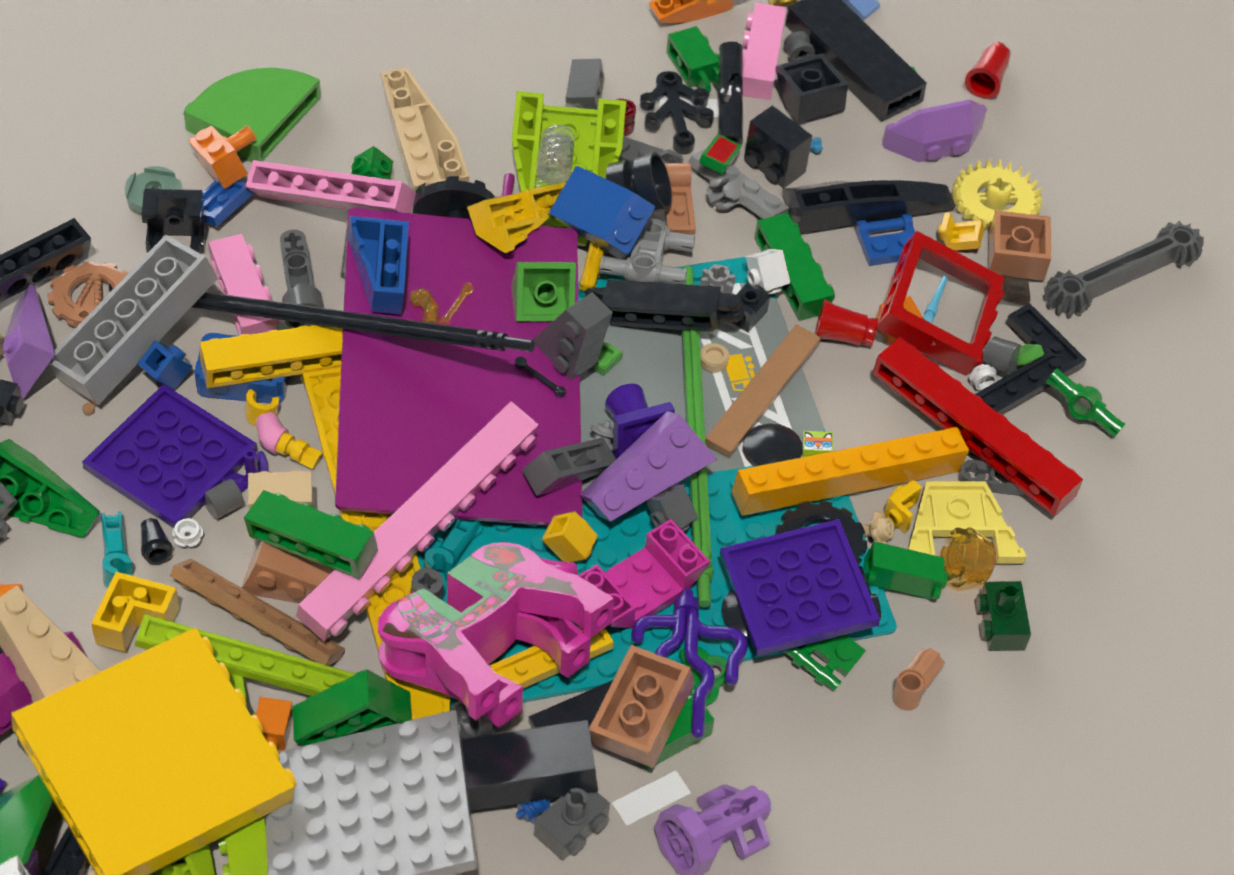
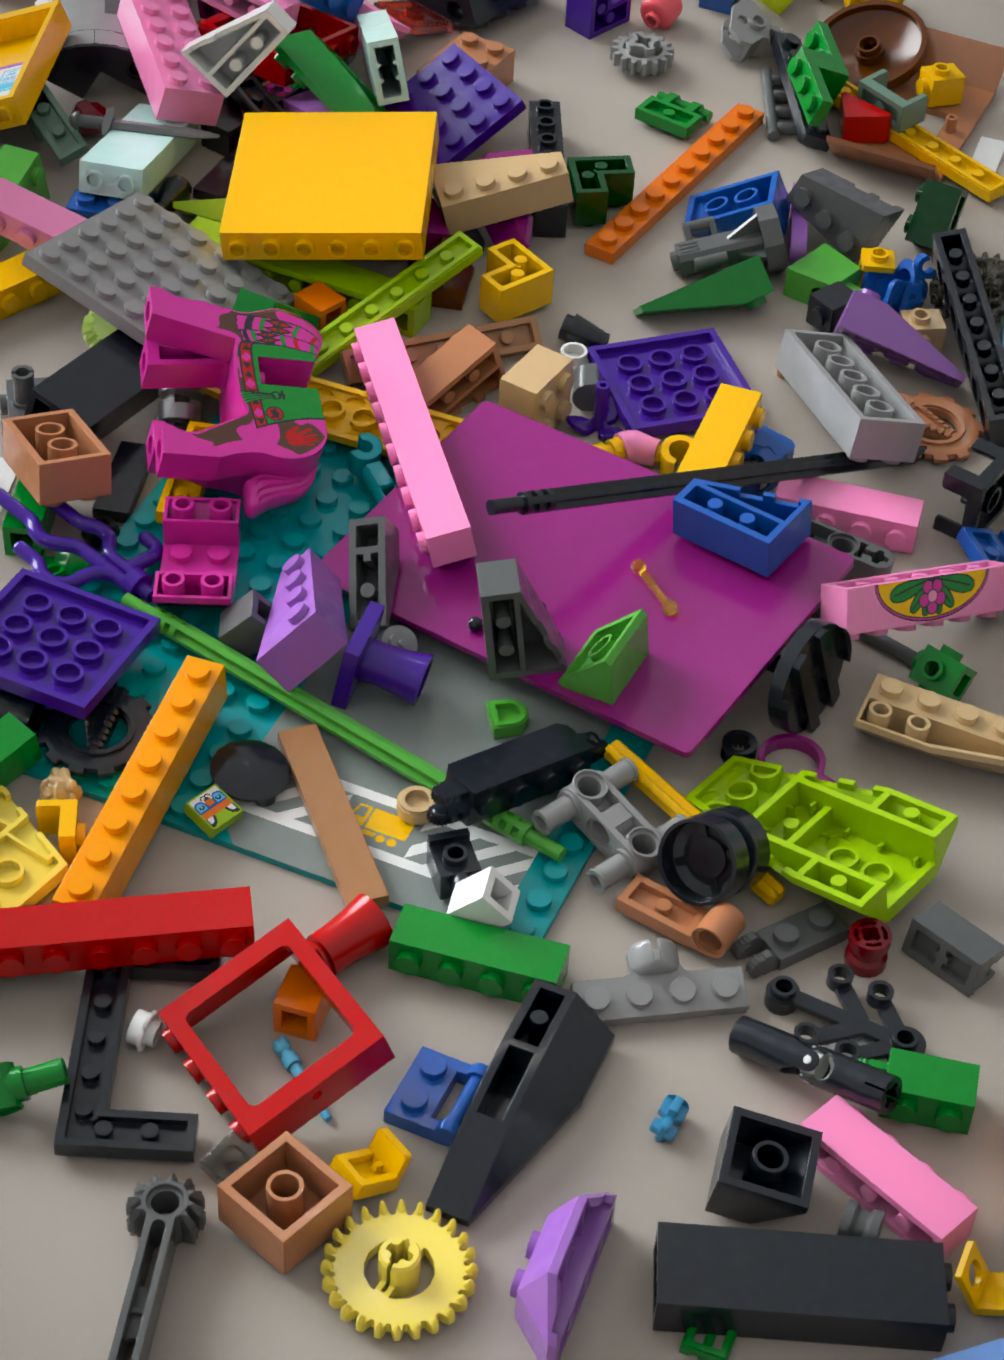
camera: 130 degrees right, 10 degrees down
(114, 548) = (573, 300): teal piece -> none
(165, 364) = (784, 410): blue brick -> none
(311, 533) = (451, 339): green brick -> none
(427, 577) = (342, 423): dark grey wheel -> none
(428, 303) = (666, 557): clear yellow arm -> none
(512, 217) = (742, 691): yellow wedge -> none
(555, 154) = (827, 811): clear piece -> none
(570, 537) = (293, 535): yellow brick -> none
(601, 211) = (684, 774): blue slope -> none
(718, 276) = (515, 858): light grey gear -> none
(720, 154) = (713, 983): tile -> none
(777, 146) = (676, 1046): black brick -> none
(1001, 354) = (144, 1047): dark grey brick -> none
(1029, 353) = (129, 1089): bright green tile -> none

